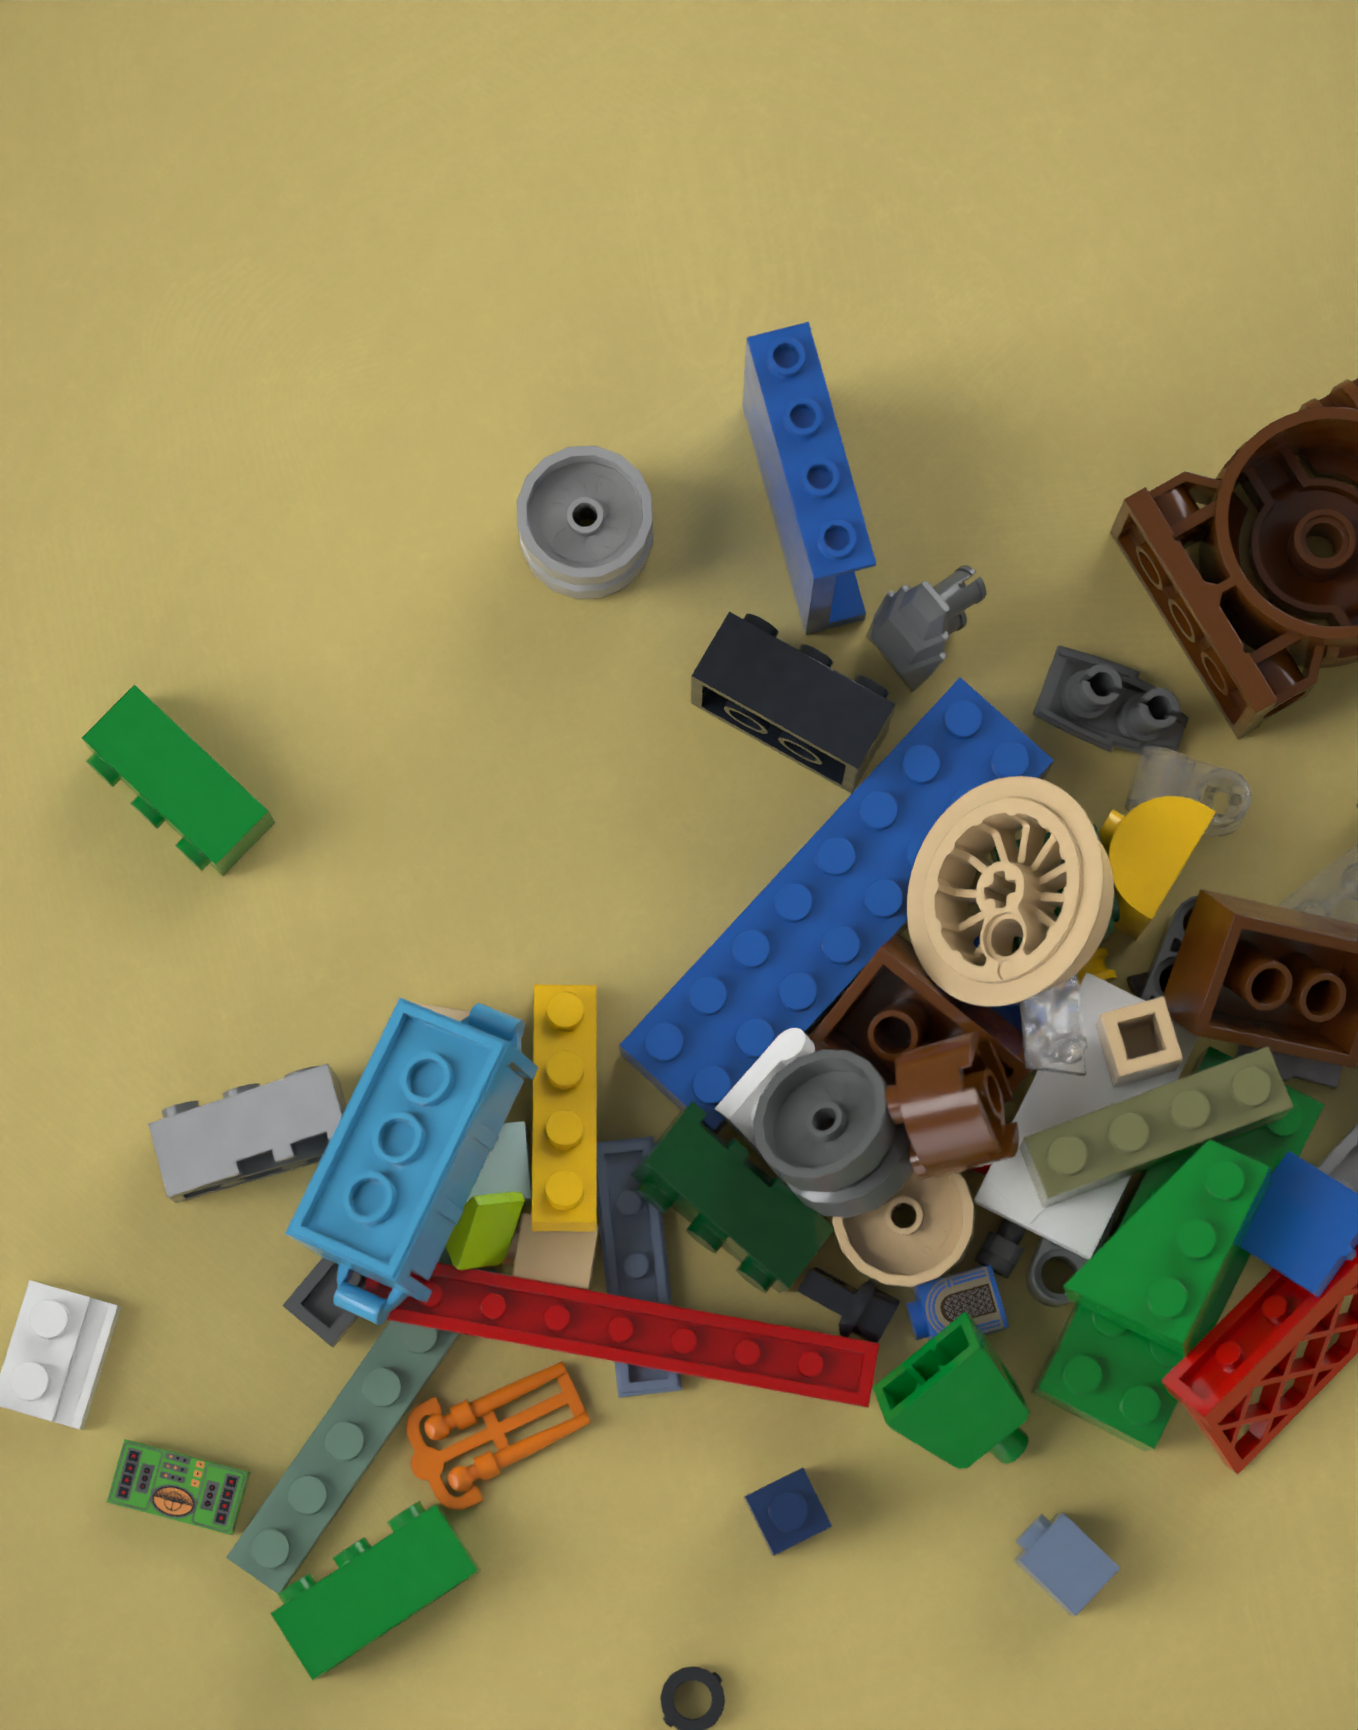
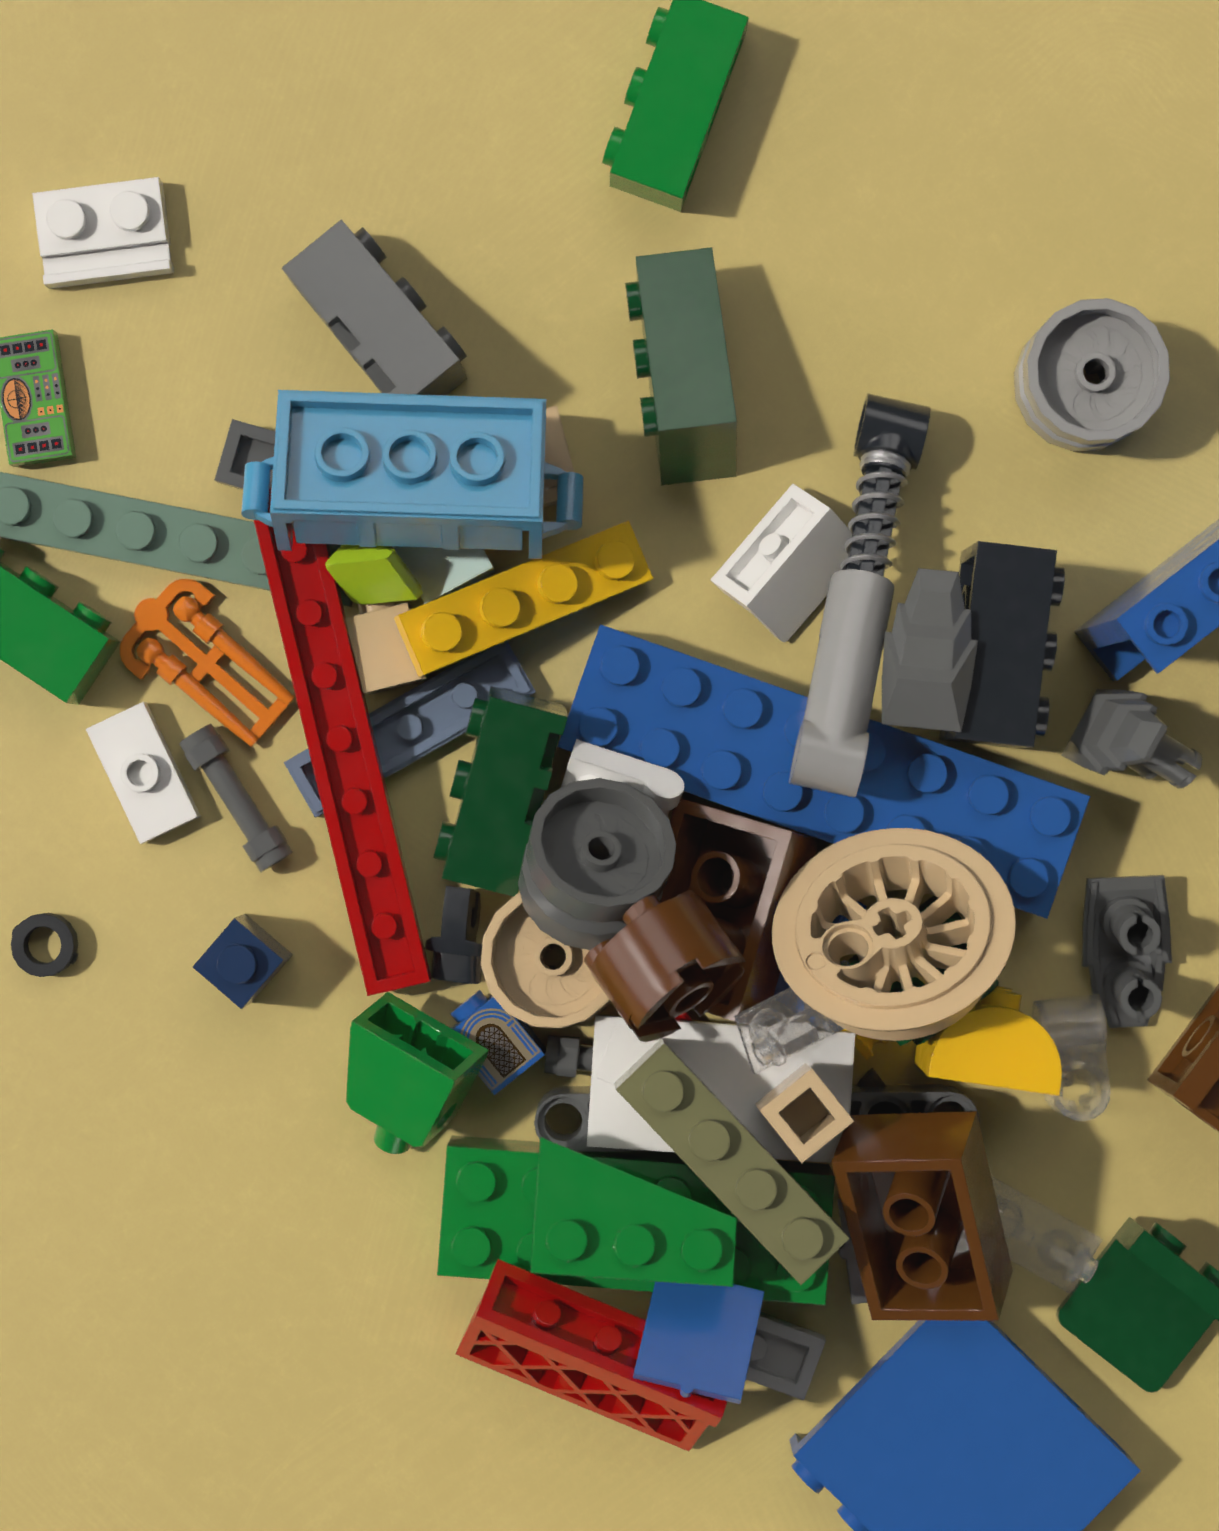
camera: 65 degrees right, 10 degrees up
(418, 873) = (685, 365): none -> dark green wedge
(571, 1534) = (143, 772): none -> white plate
(577, 1465) = (206, 751): none -> dark grey bar
(634, 857) = (786, 562): none -> white panel
(775, 760) = (929, 656): none -> dark grey connector
(808, 873) = (858, 603): none -> light grey piece
(1064, 1561) = (306, 1230): sand blue brick -> none

